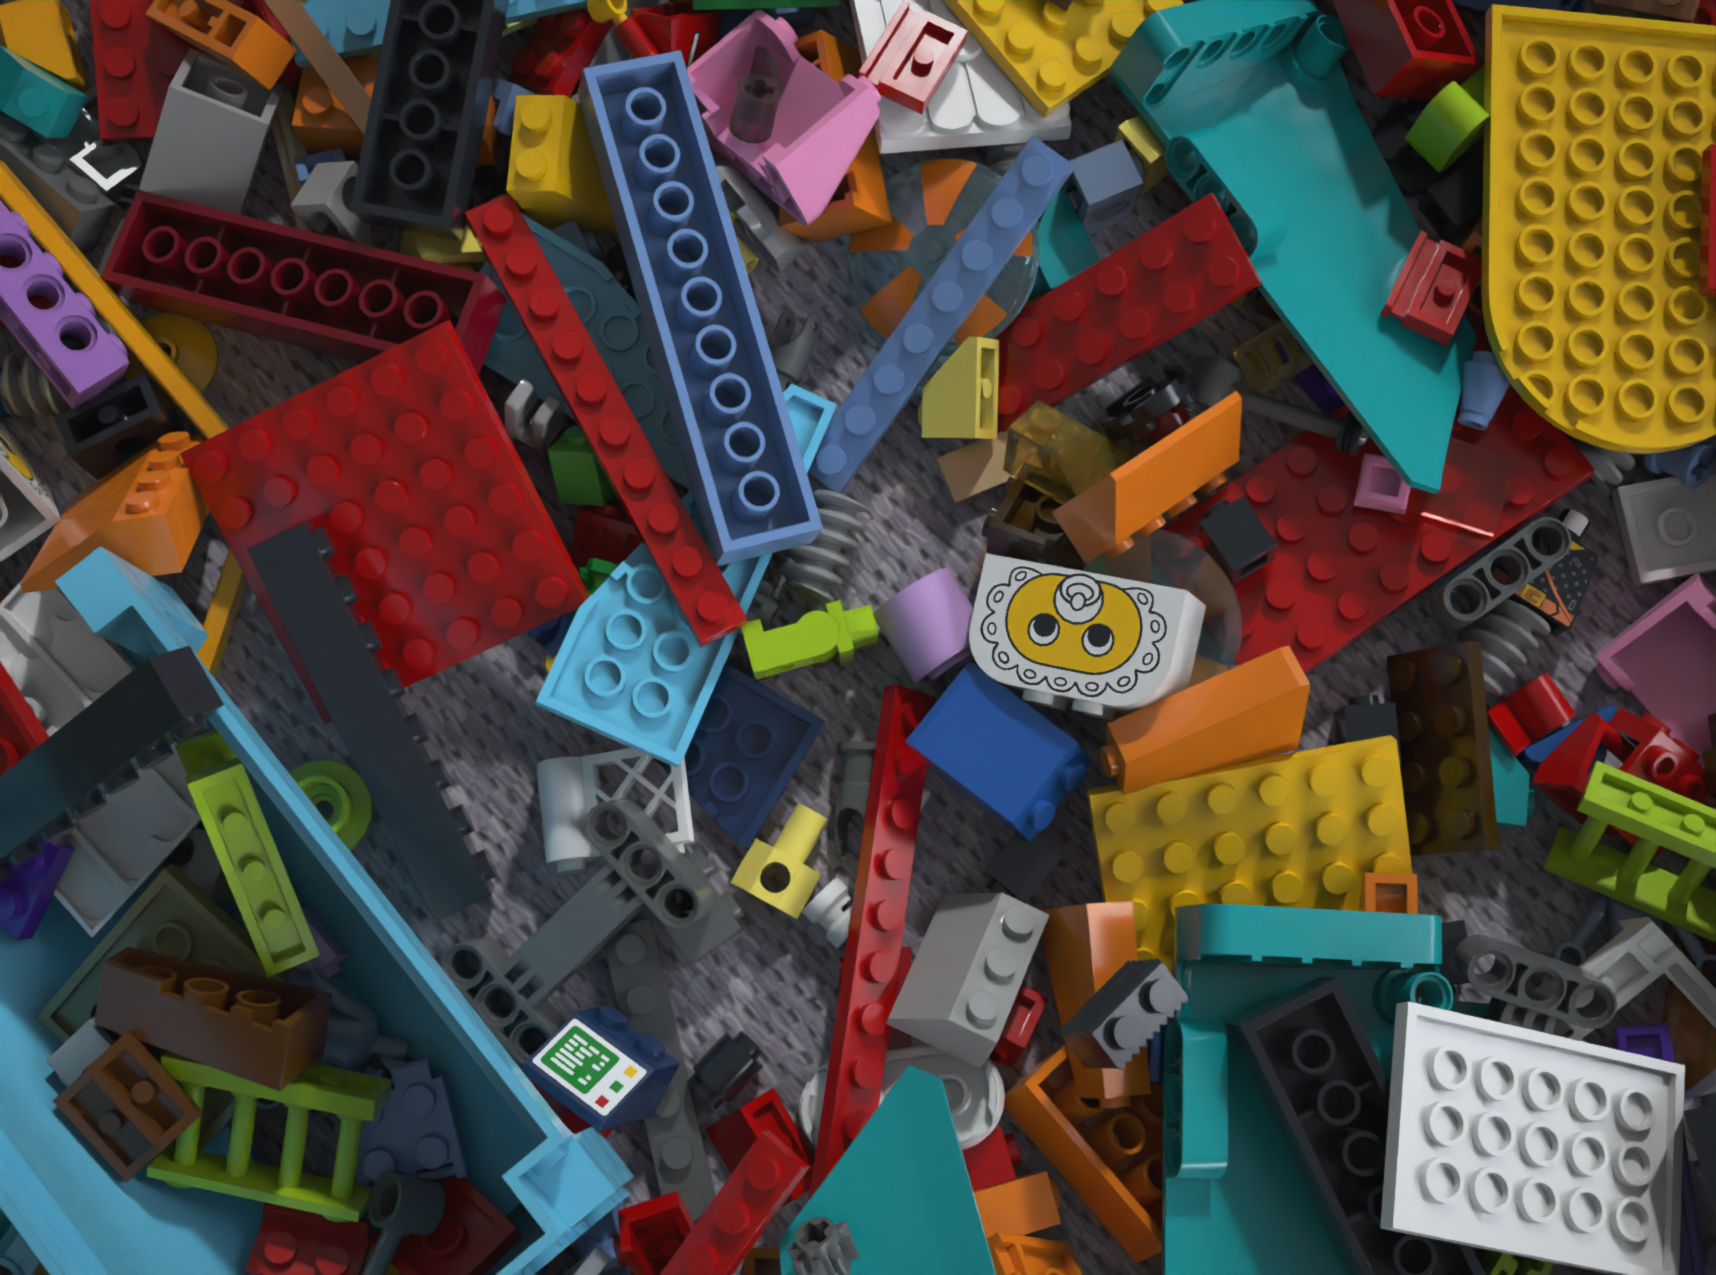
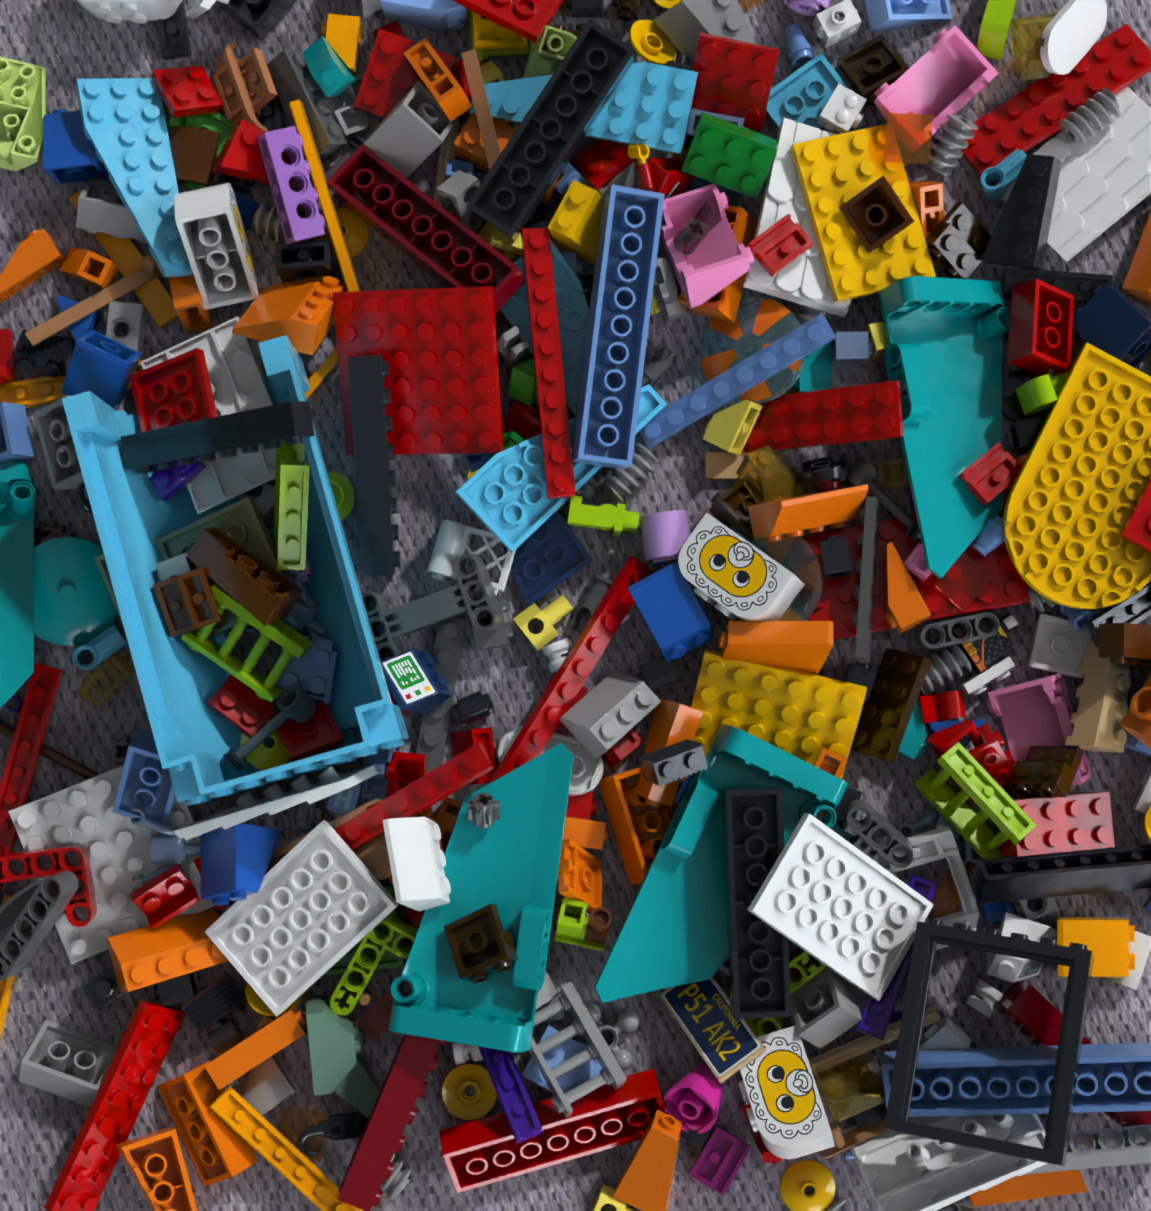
camera: 20 degrees right, 5 degrees up
(1313, 573) = (865, 591): none -> dark grey plate
(1383, 556) = (903, 601): none -> orange slope
(1568, 648) = (996, 671): none -> white plate

